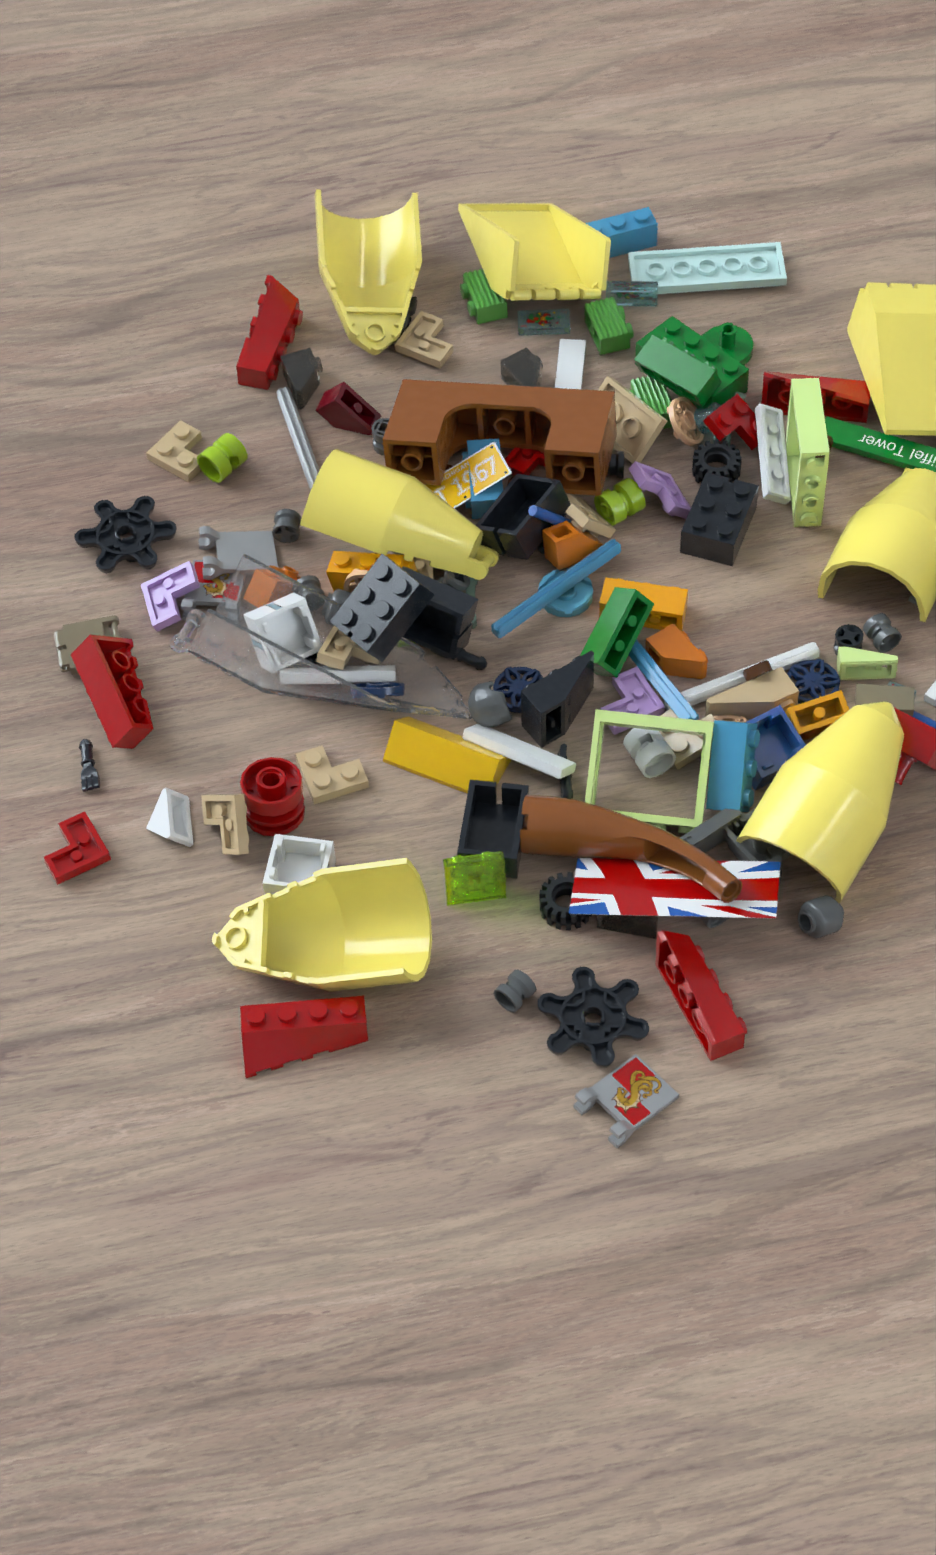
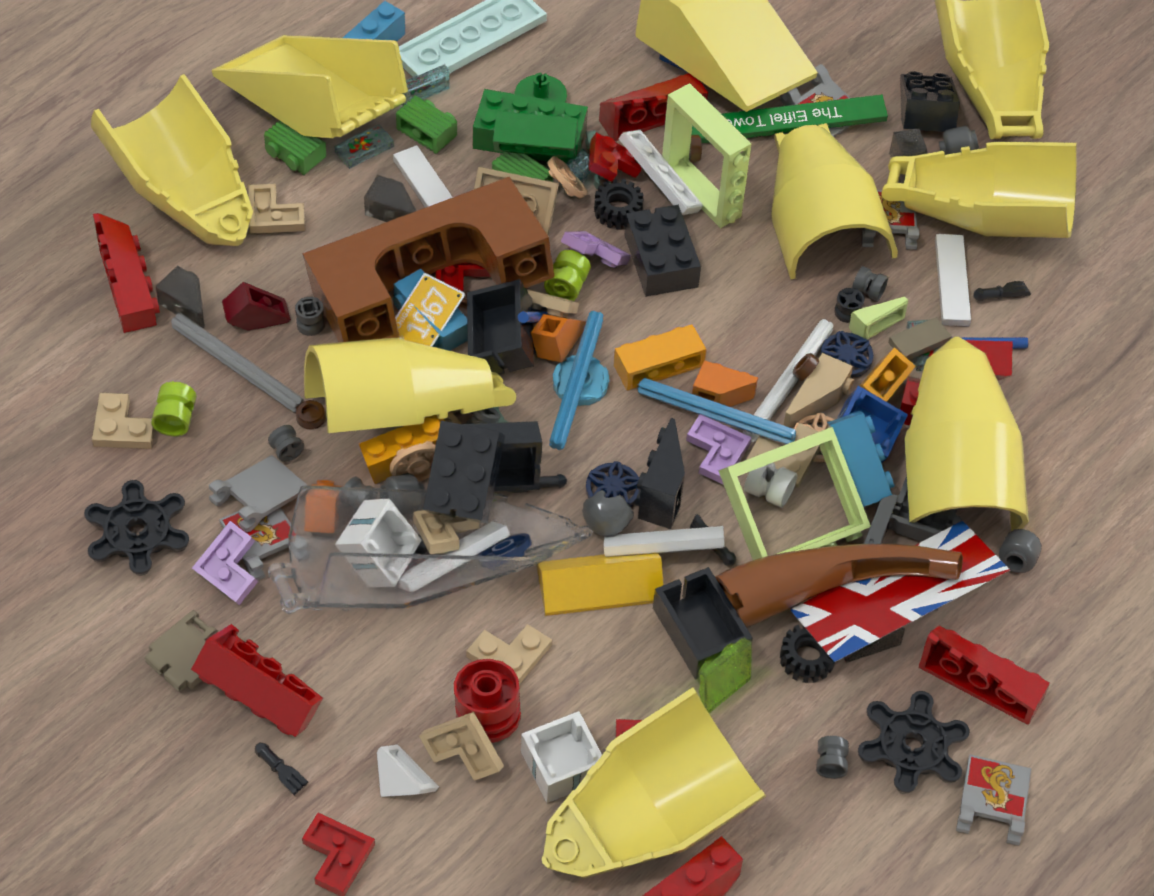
camera: 40 degrees left, 0 degrees up
(617, 630) = (667, 389): green brick -> none

